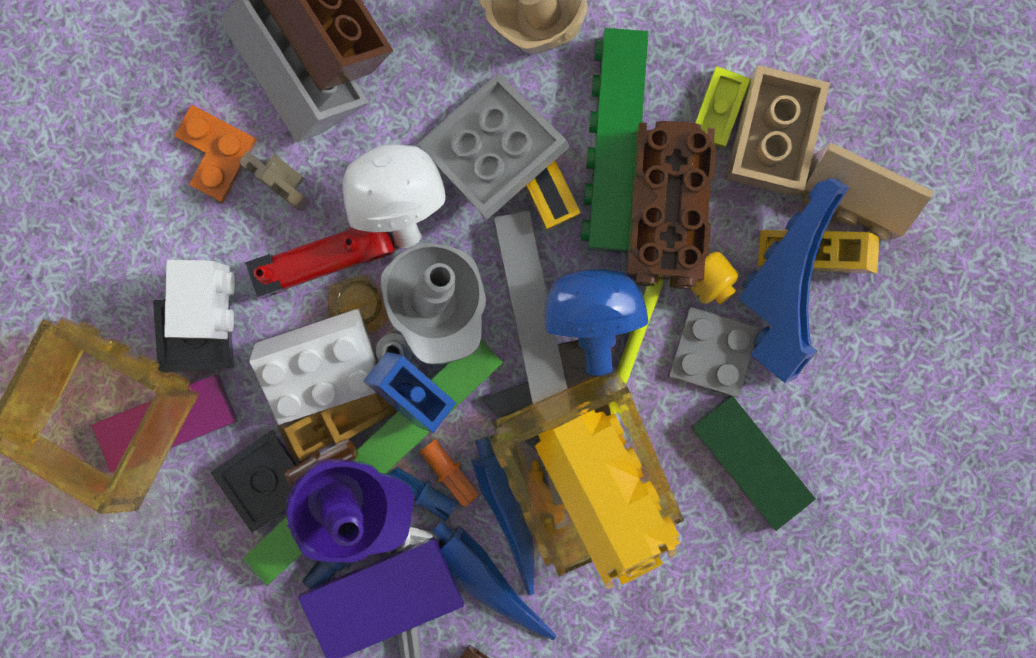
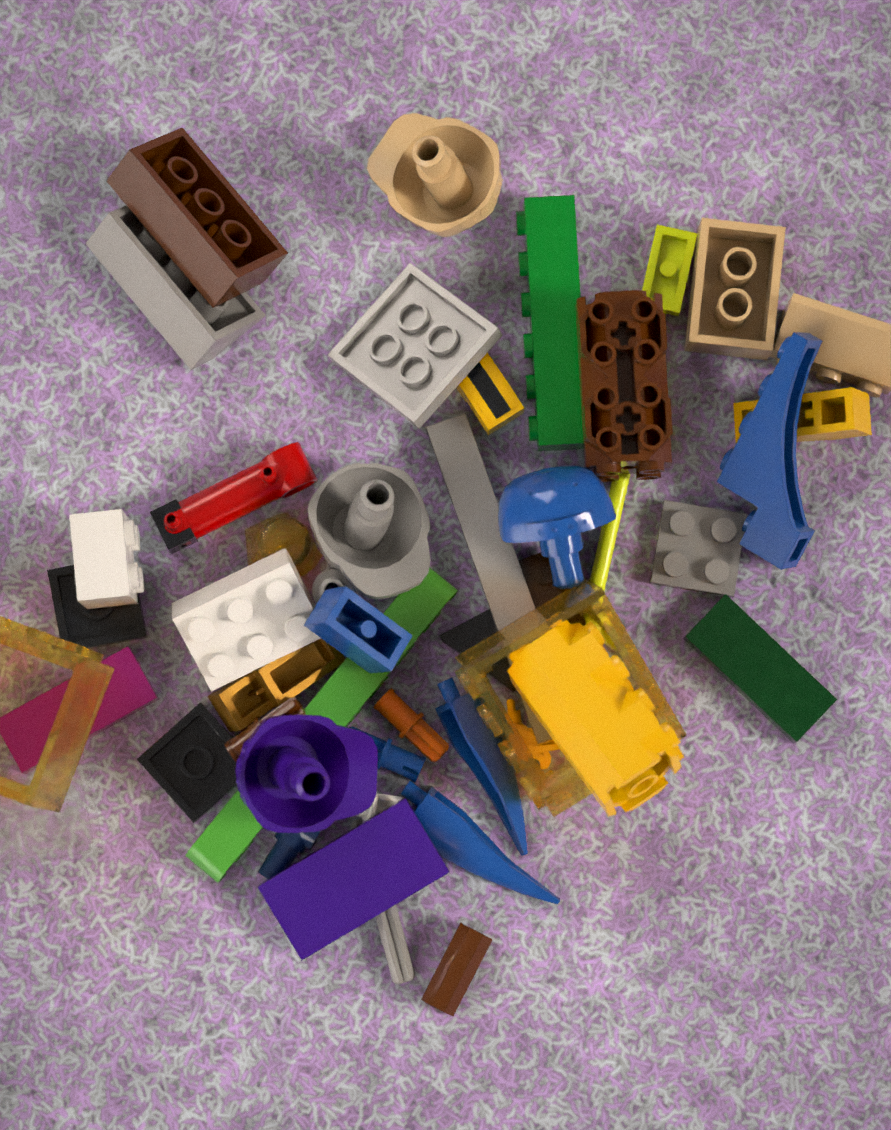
camera: 10 degrees left, 5 degrees down
(223, 150) = (106, 388): orange plate -> none
(278, 177) = (173, 413): dark tan plate -> none
(392, 191) = (308, 410): white piece -> none
(718, 280) = (689, 465): yellow head -> none

